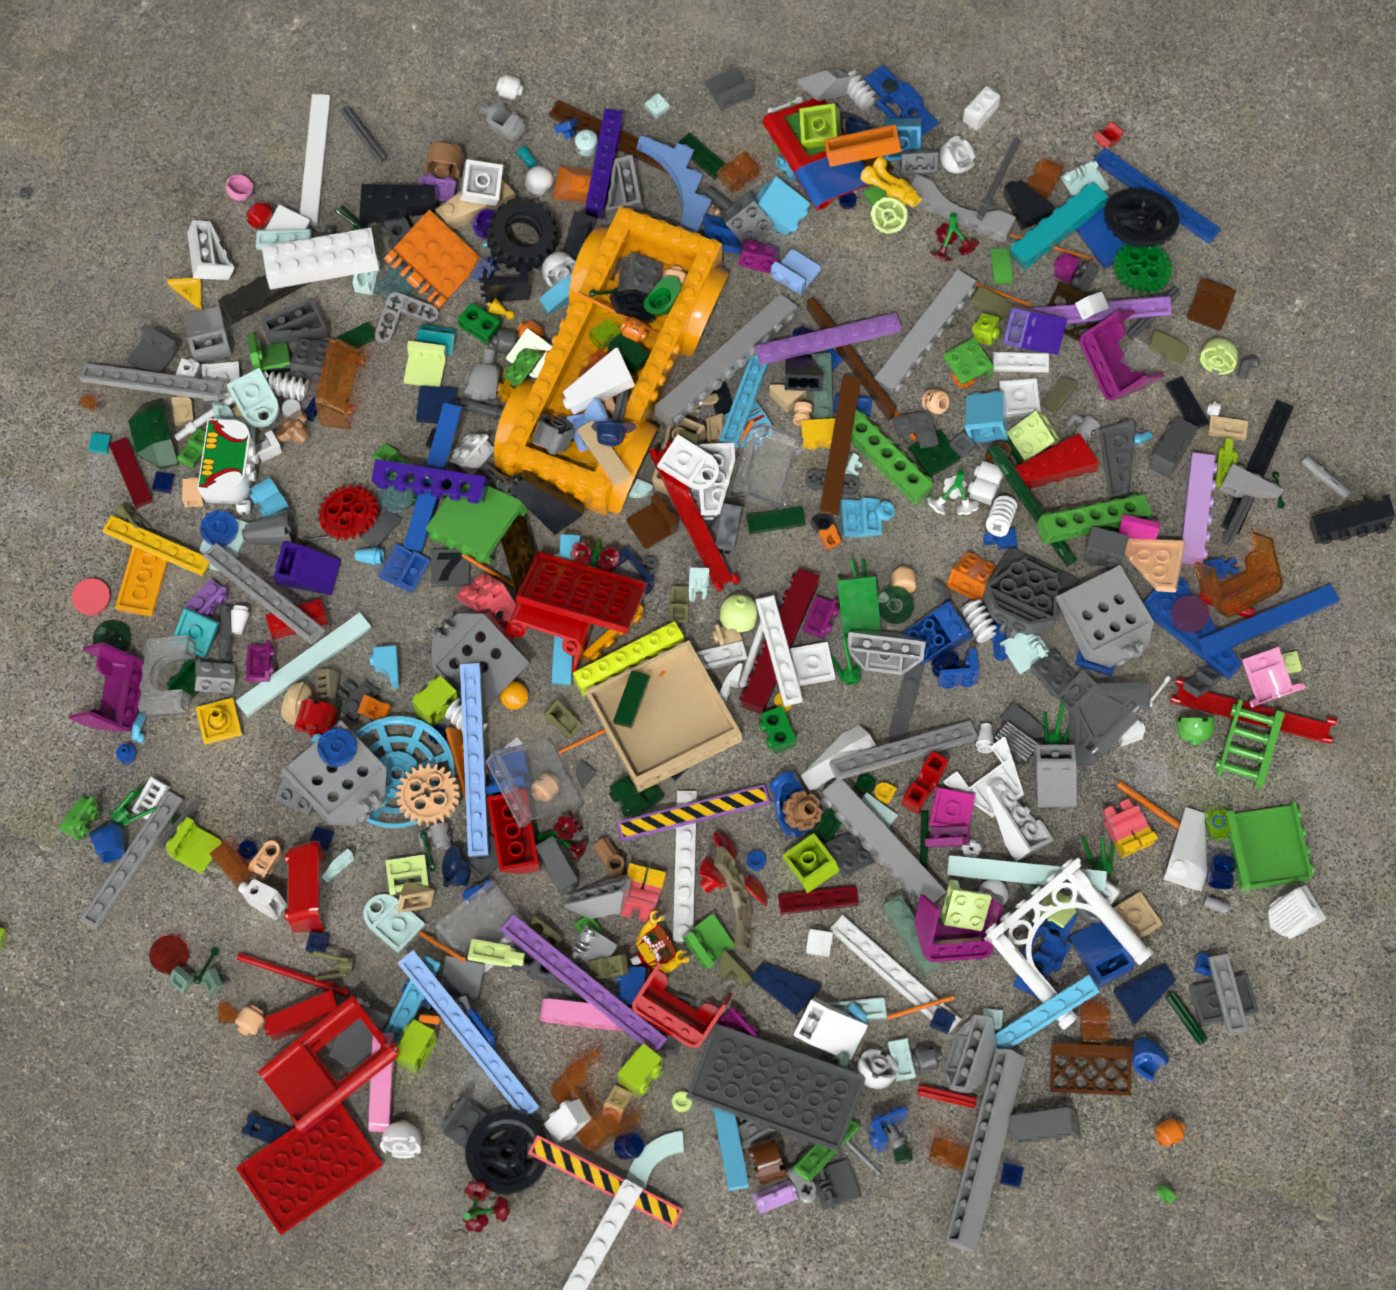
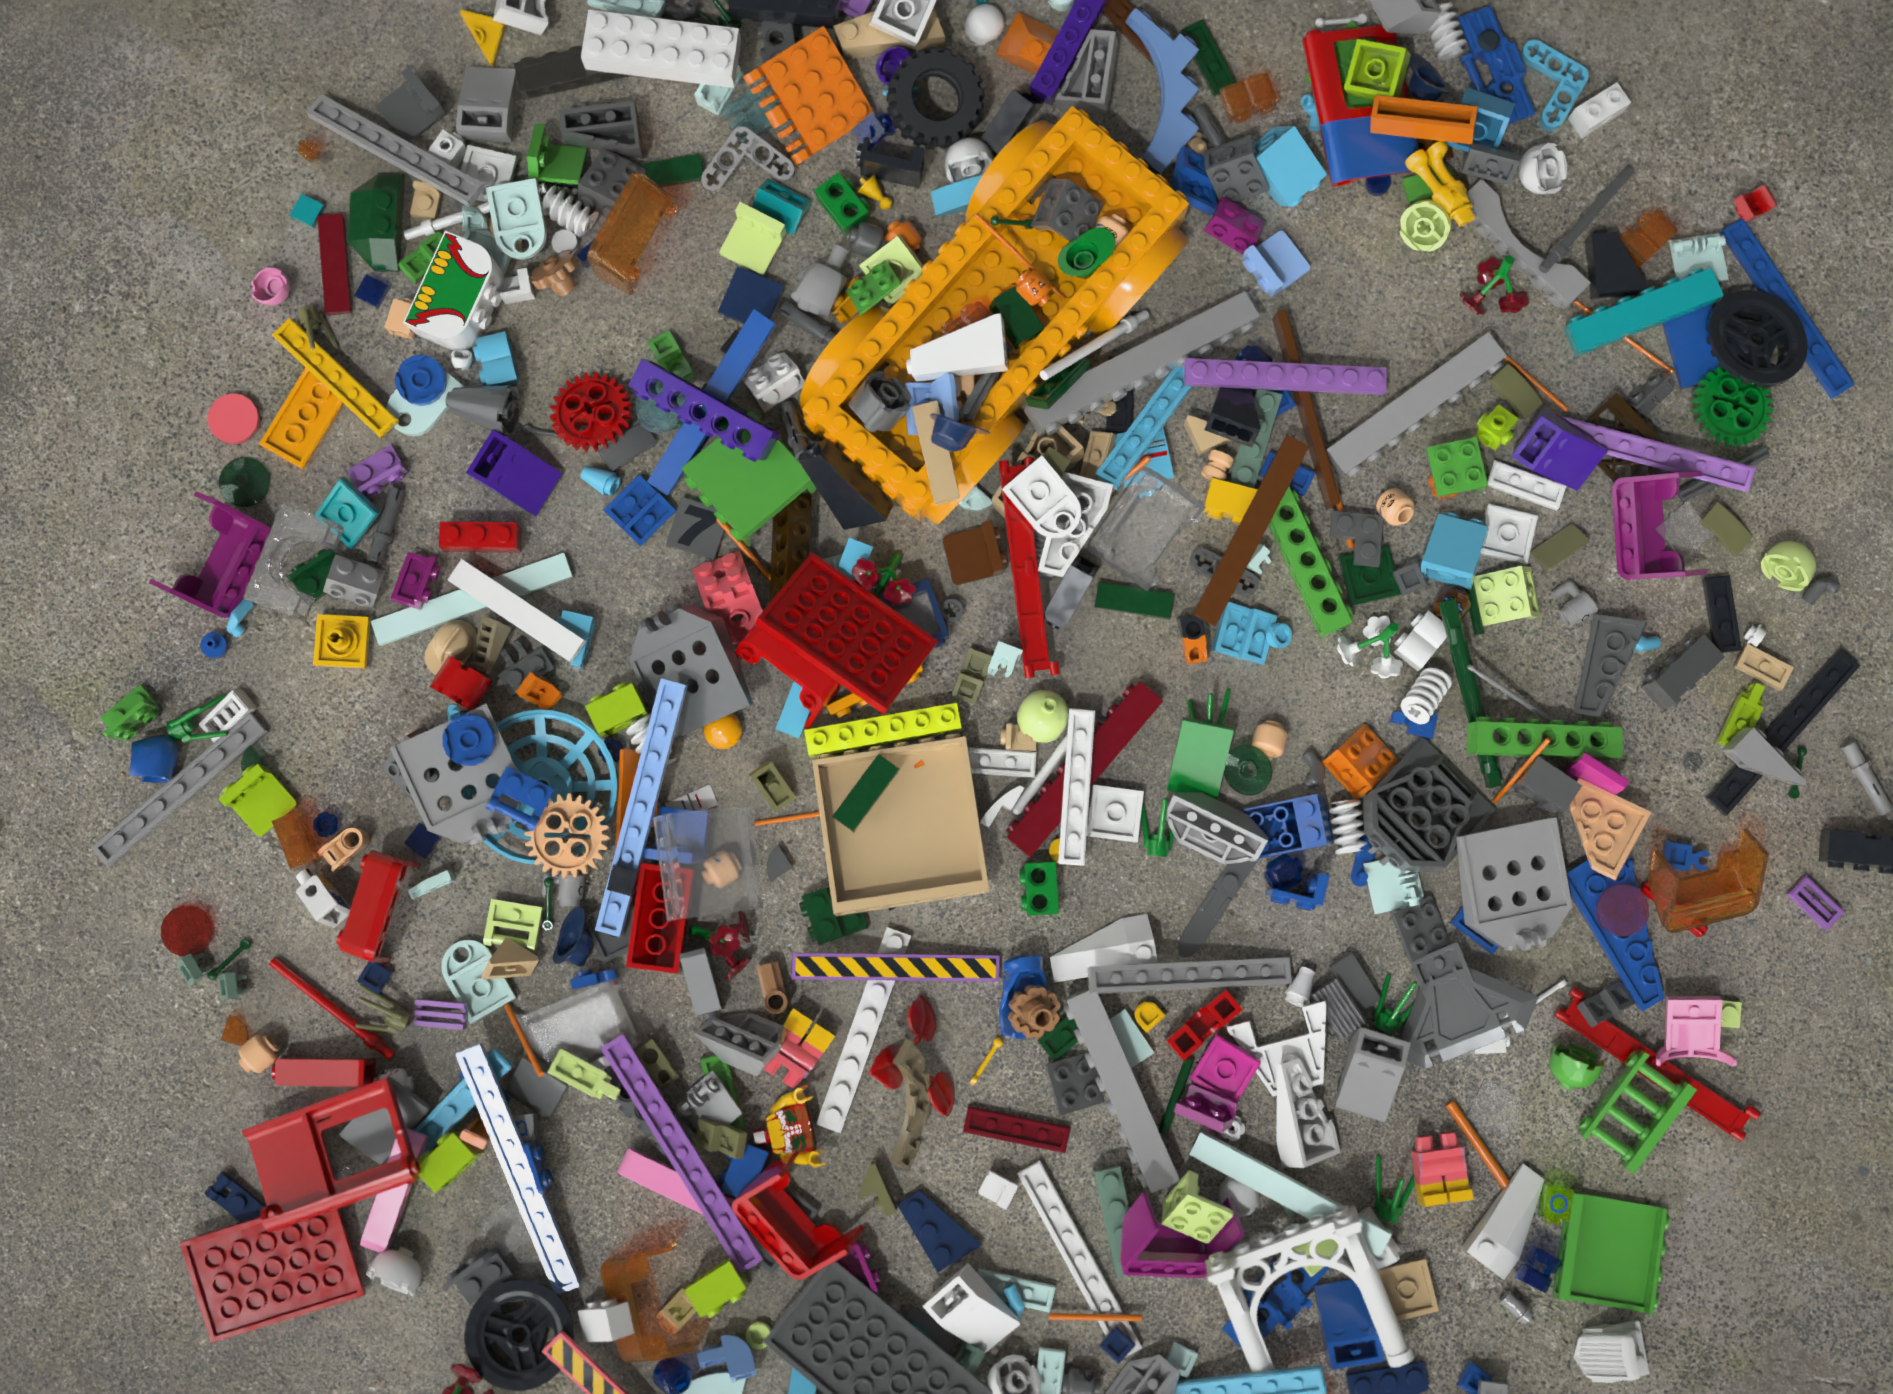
camera: 15 degrees right, 15 degrees up
(90, 499) = (270, 286): none -> bright pink hair
(173, 830) = (255, 759): dark grey bar -> none
(239, 617) = (409, 511): white cone -> none
(264, 593) = (446, 493): light grey tile -> none
(339, 658) = (516, 611): none -> white tile
(358, 955) = (420, 1012): none -> medium lavender tile
(386, 769) = (523, 790): none -> blue plate
(478, 811) = (623, 880): none -> black tile
(603, 334) = (993, 281): clear neon green brick -> none
(631, 304) = (1041, 251): black wing -> none
(668, 1116) = (734, 1353): none -> medium blue brick
(672, 386) = (1056, 386): none -> dark green tile
(705, 342) = (1126, 326): none -> white bar
(708, 941) = (858, 1142): bright green bracket -> none
(756, 860) = (956, 1051): blue tile -> none
(784, 845) = (998, 1042): none -> yellow hinge
(810, 863) = (1021, 1084): lime brick -> none
(820, 617) = (1146, 754): magenta bracket -> none
(865, 784) = (1128, 1000): dark green tile -> none
(952, 99) = (1565, 82): none -> medium azure beam
(1001, 266) = (1547, 342): bright green slope -> none
(1055, 495) = (1509, 693): none -> light grey piece
(1060, 462) = (1530, 644): red wedge -> none
(1066, 267) = (1631, 373): magenta brick -> none
(1085, 543) = (1521, 770): none -> orange axle
(1092, 305) = (1647, 444): white panel -> none
(1197, 507) = (1684, 764): lavender brick -> none
(1211, 304) = (1803, 488): reddish brown bracket -> none
(1237, 520) = (1729, 801): dark grey axle -> none
(1268, 621) = (1720, 951): blue tile -> none
(1320, 576) = (1798, 887): none -> medium lavender tile

